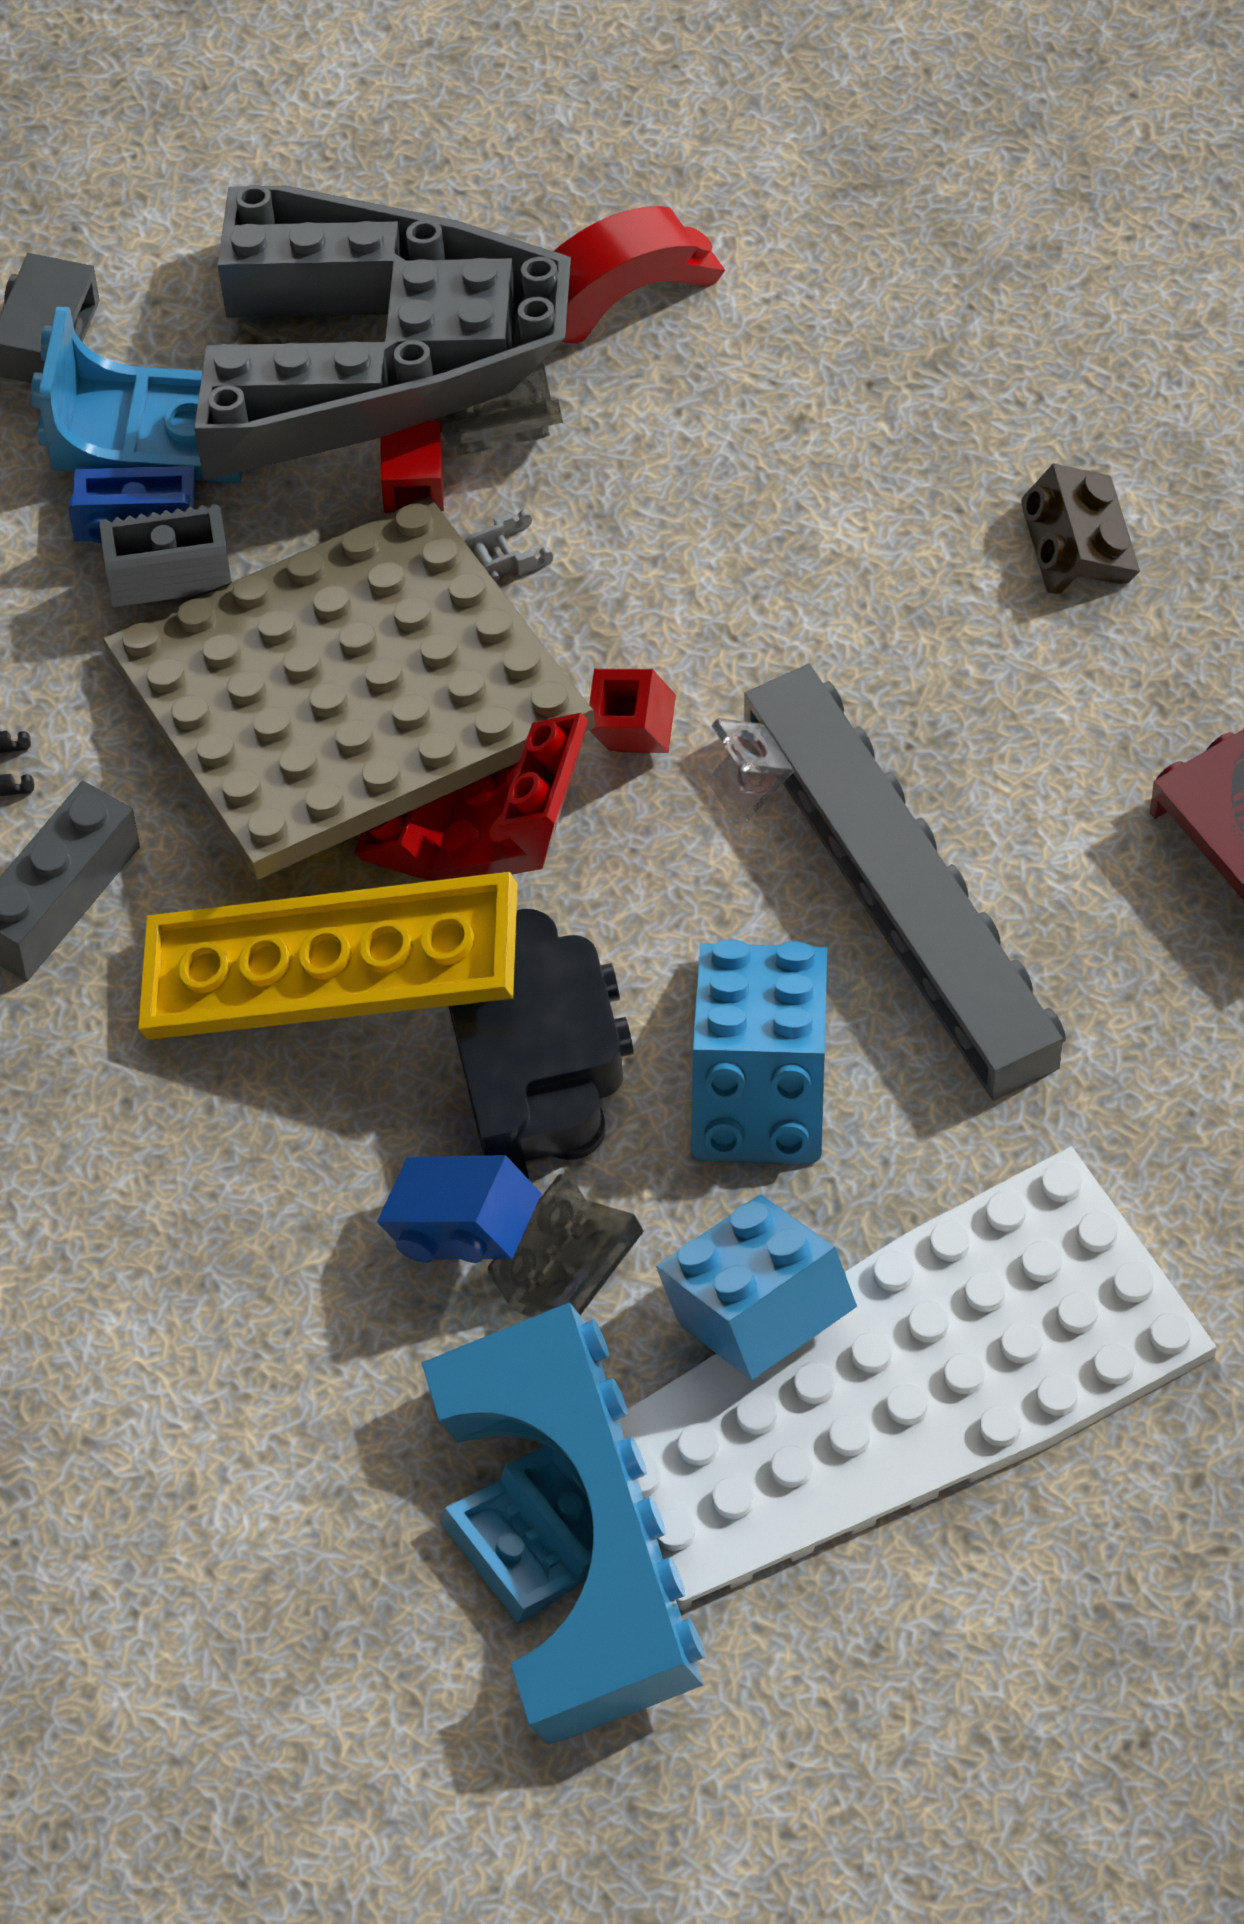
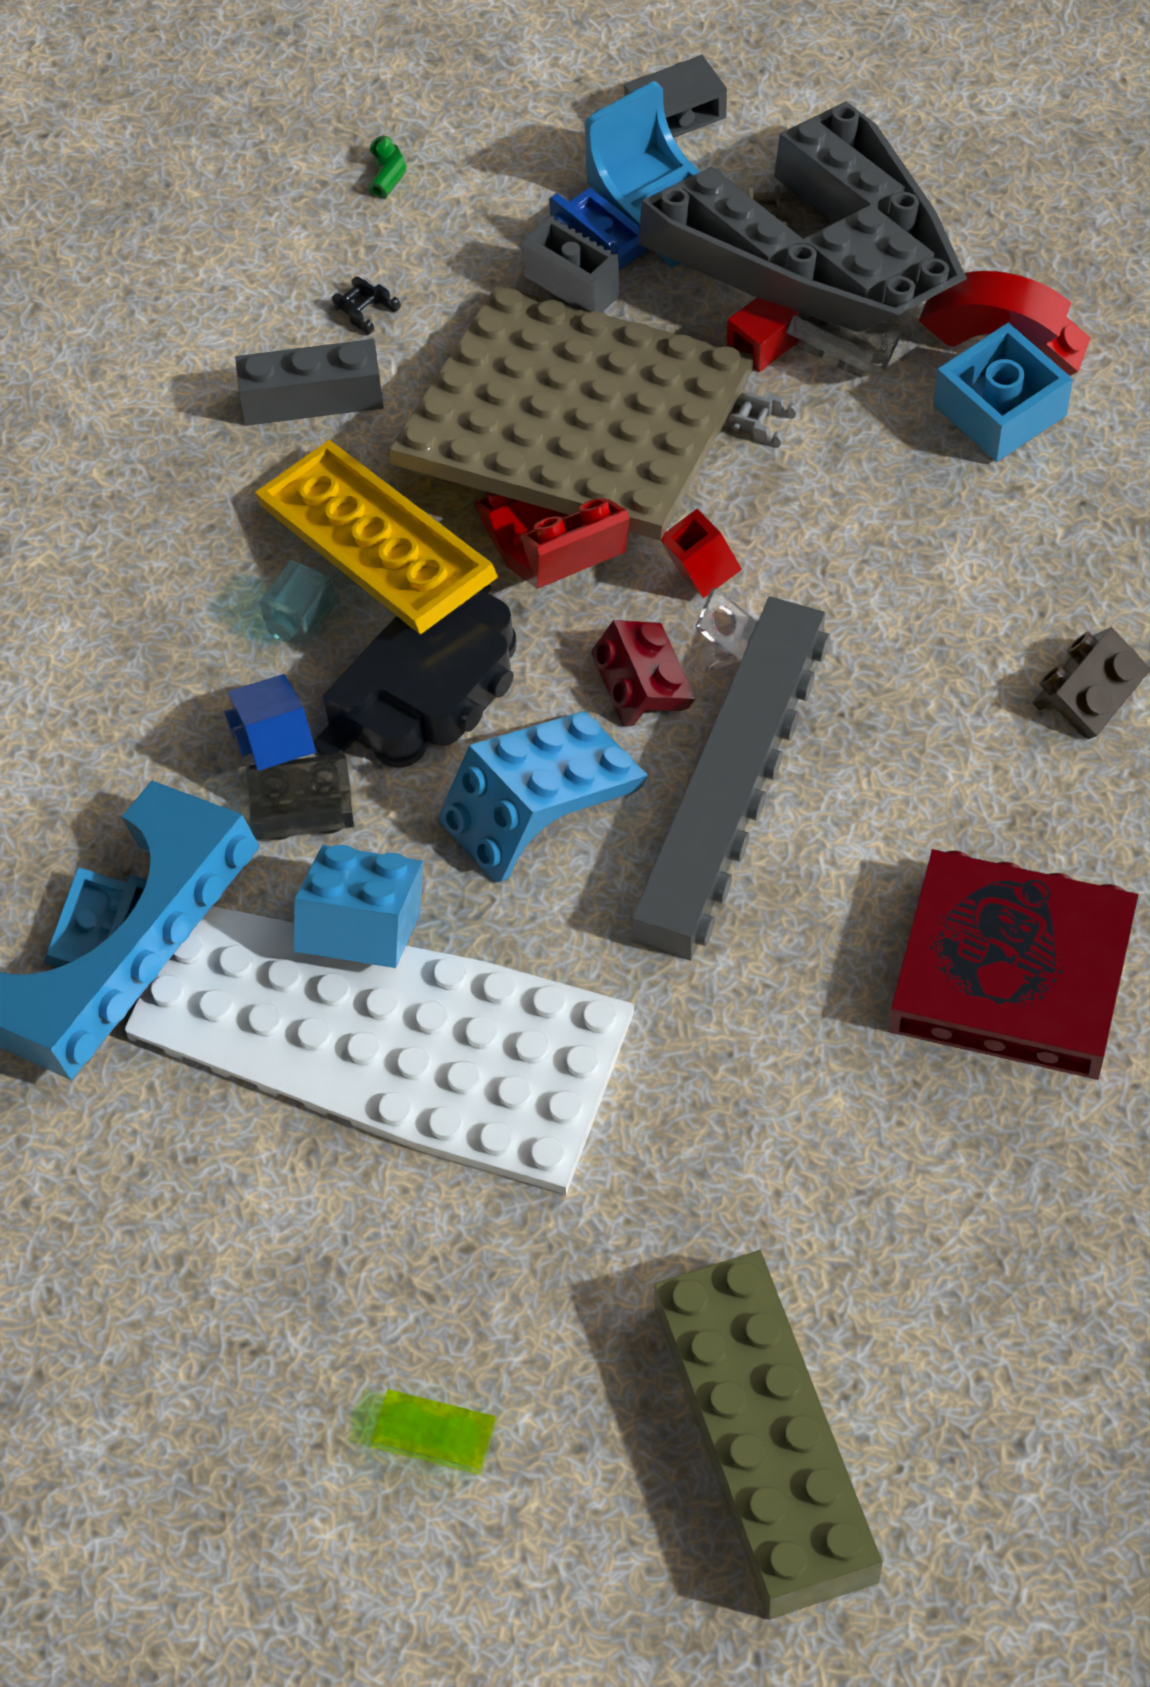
camera: 50 degrees right, 0 degrees up
(321, 1089) = (297, 603): none -> clear light blue brick
(700, 340) = (1002, 392): none -> dark azure brick
(701, 865) = (641, 670): none -> dark red bracket

